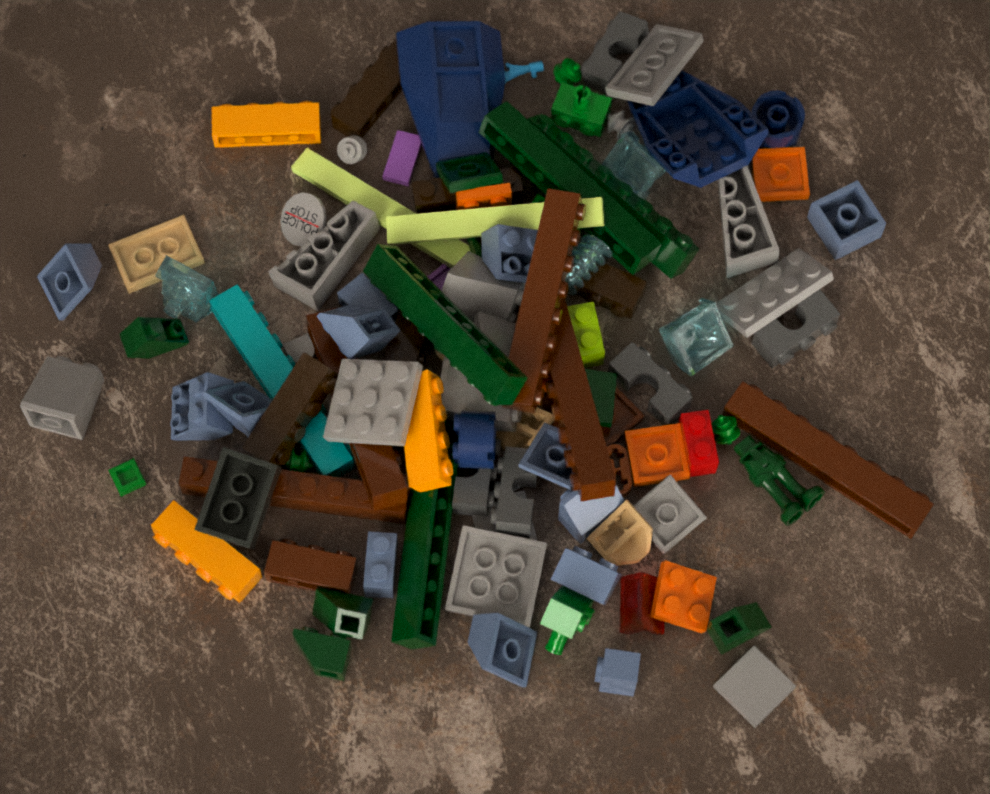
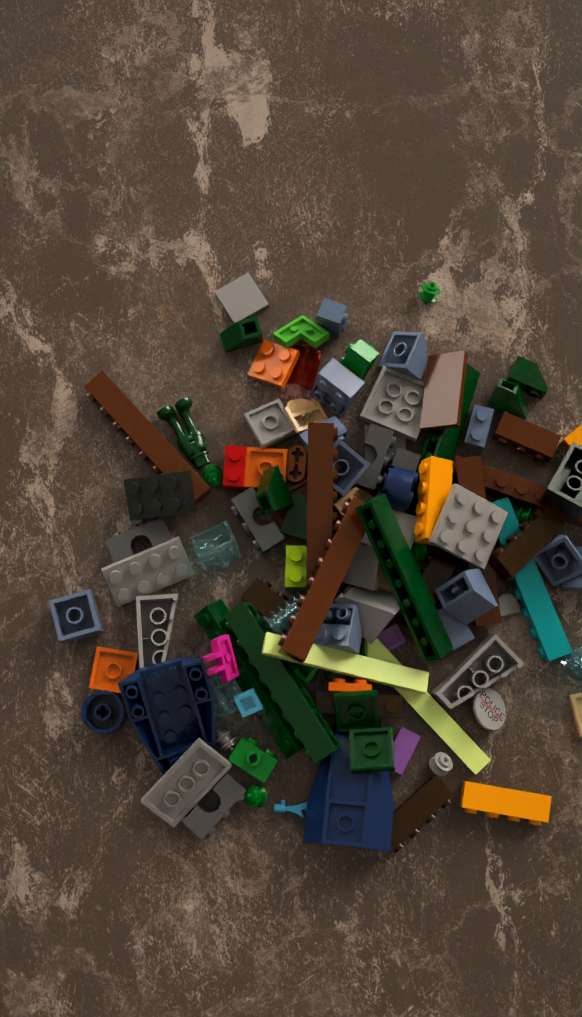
camera: 165 degrees left, 10 degrees up
(438, 593) = (444, 391): none -> tile
(441, 132) = (371, 750): none -> dark green tile
(486, 748) = (429, 292): none -> green wheel
(604, 153) = (248, 702): none -> medium azure plate
(639, 412) = (272, 491): none -> dark green slope
(649, 193) = (224, 658): none -> dark pink hinge
(657, 652) = (302, 329): none -> bright green plate
(786, 379) = (160, 495): none -> pearl dark grey brick

